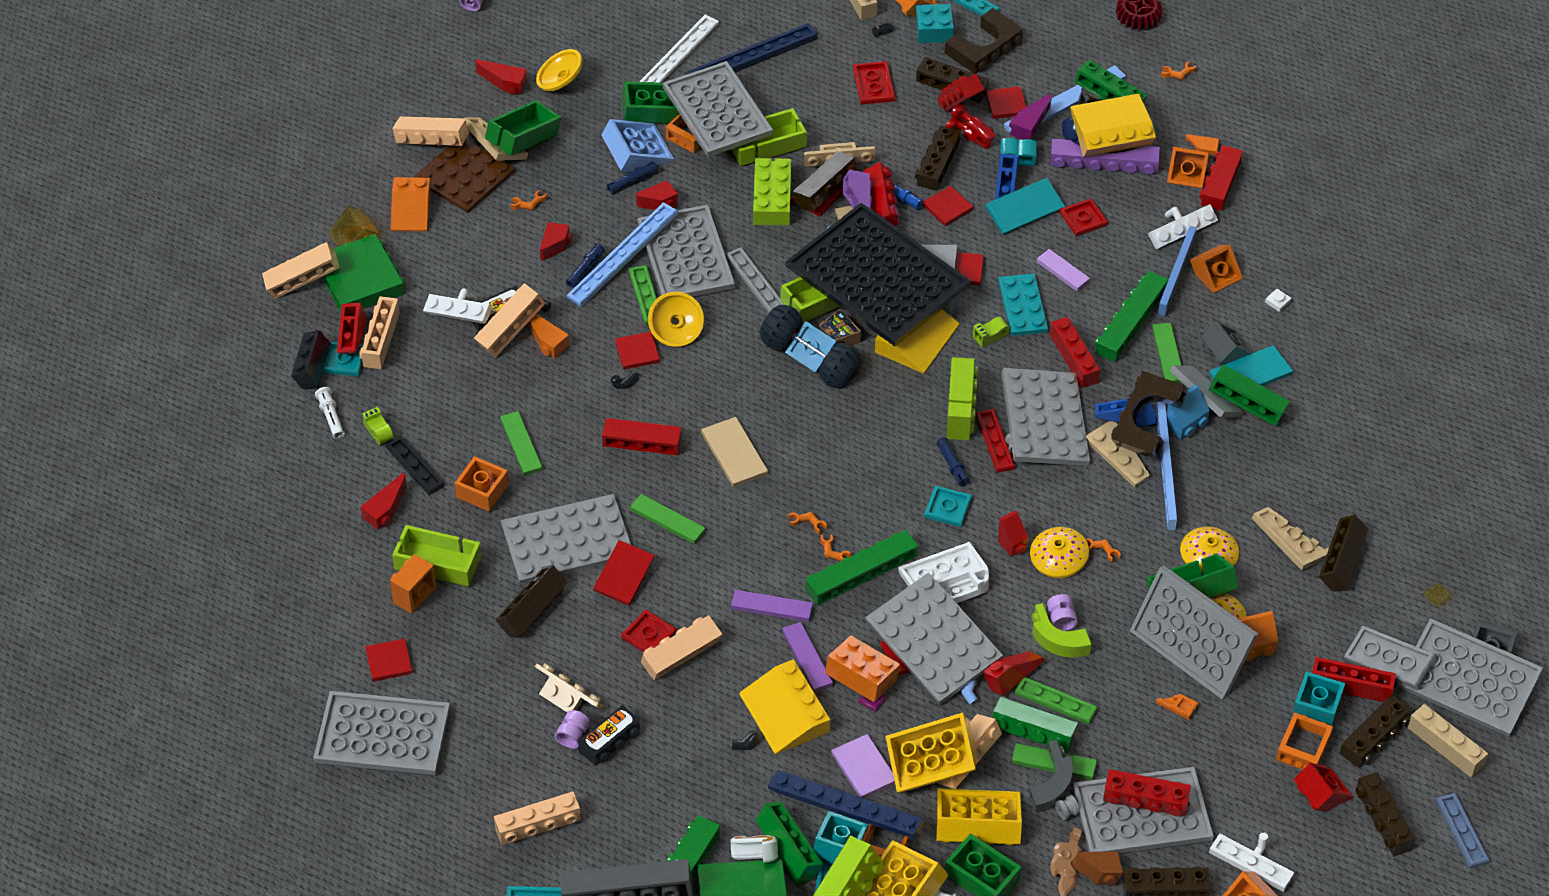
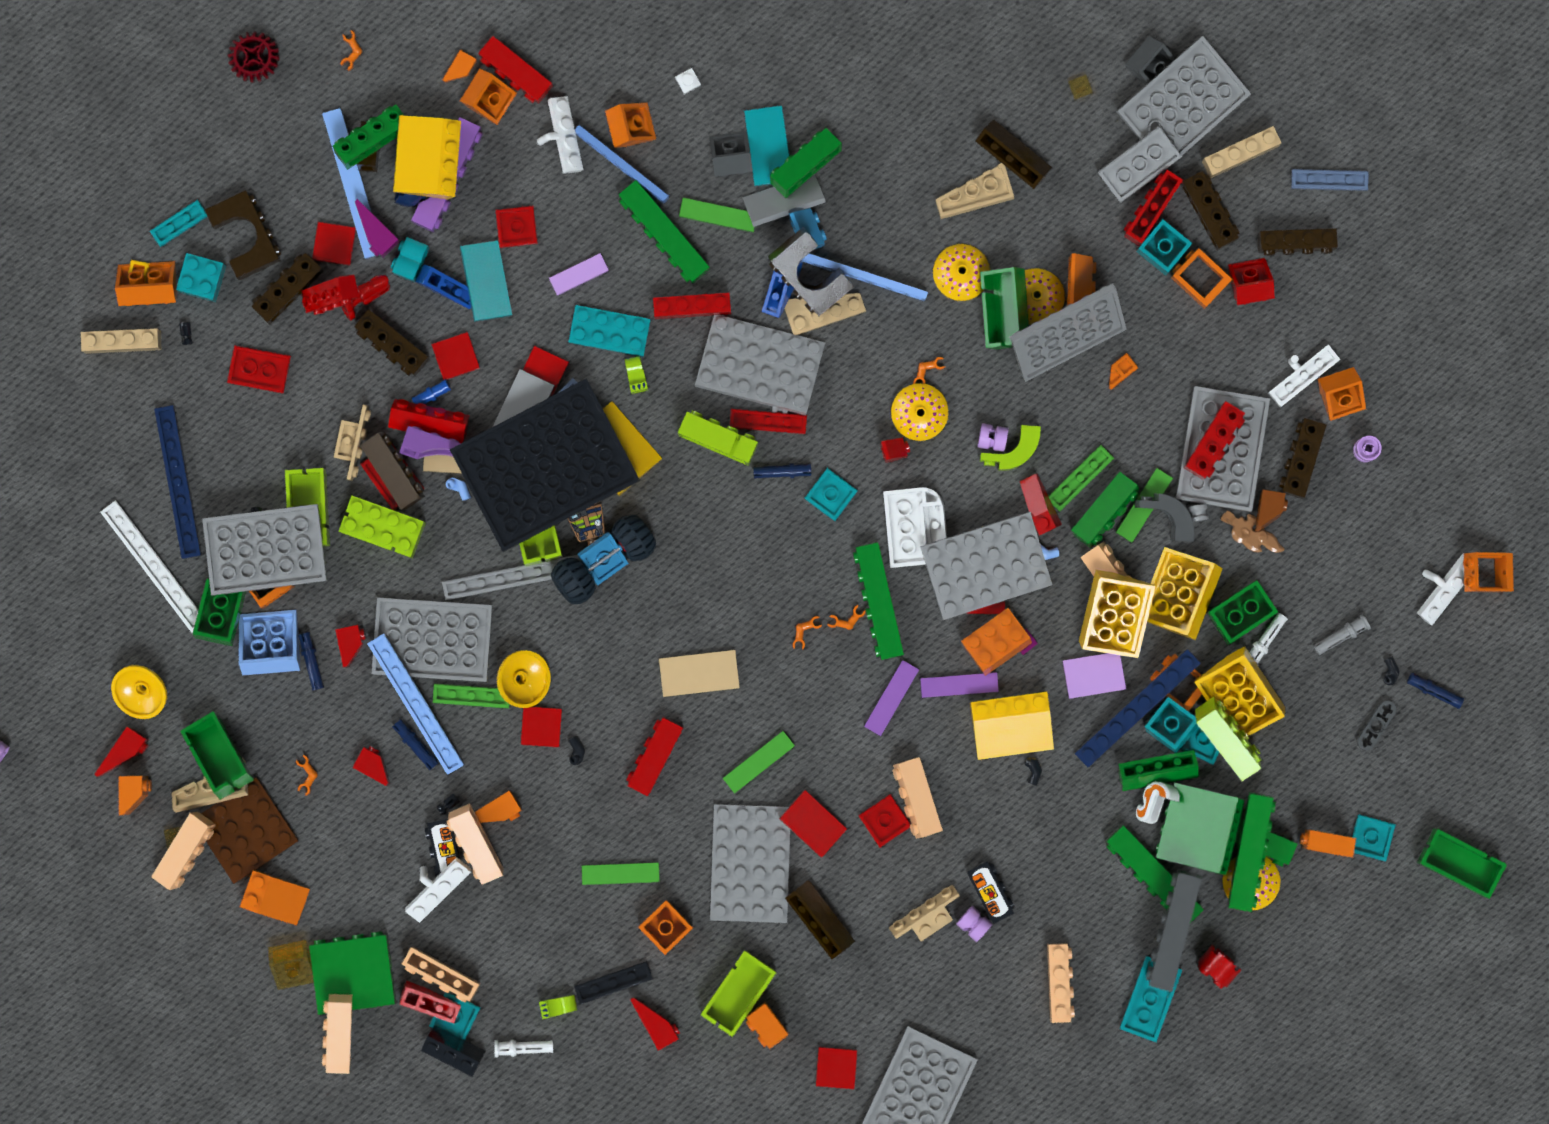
camera: 70 degrees left, 35 degrees up
(468, 86) = (132, 792): none -> orange slope

